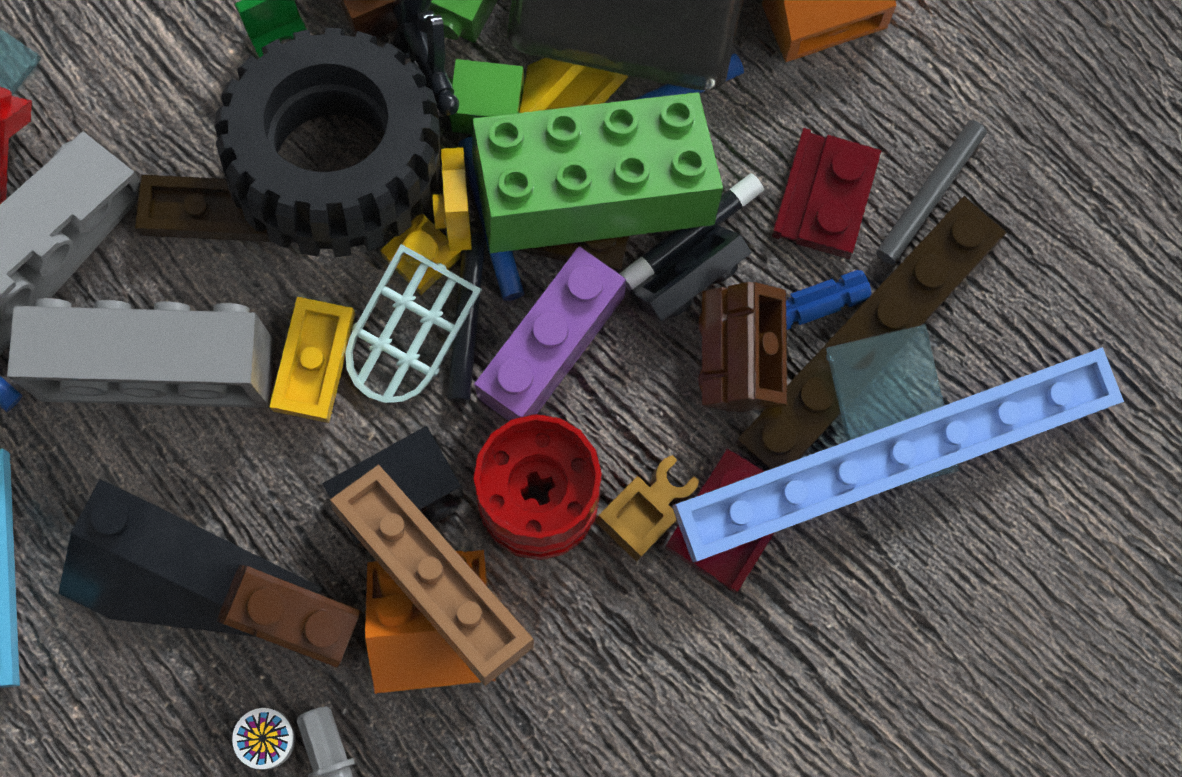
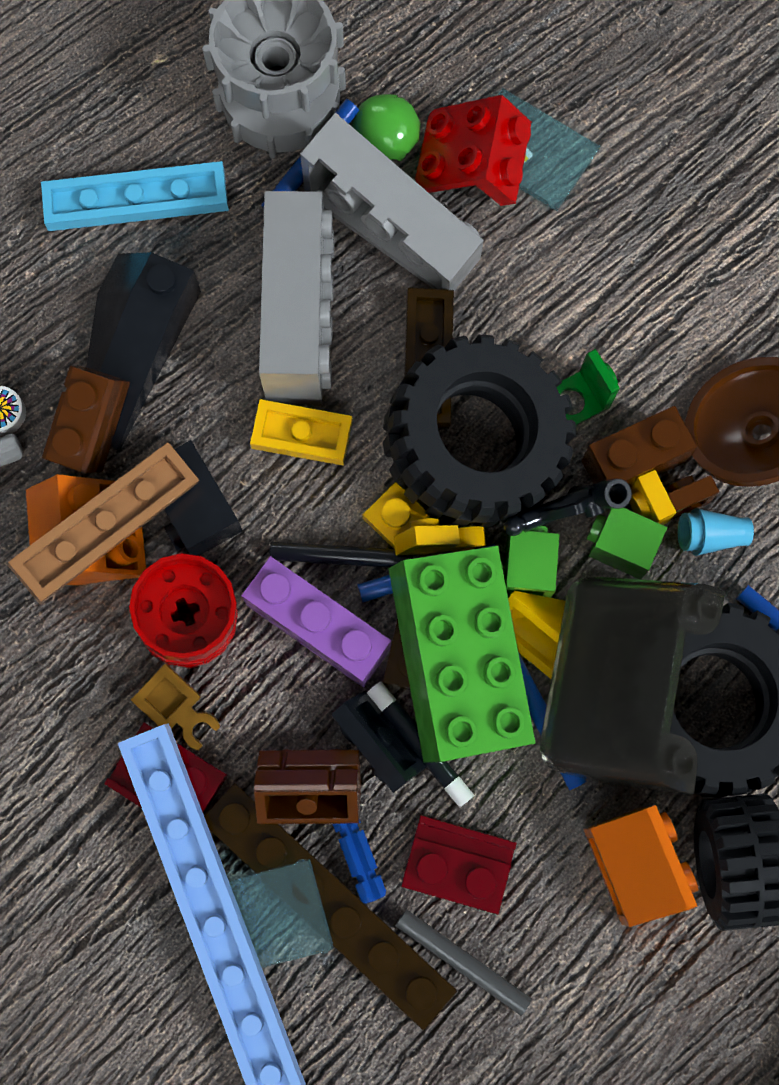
camera: 90 degrees right, 0 degrees up
(429, 318) = (336, 522): light aqua window -> none

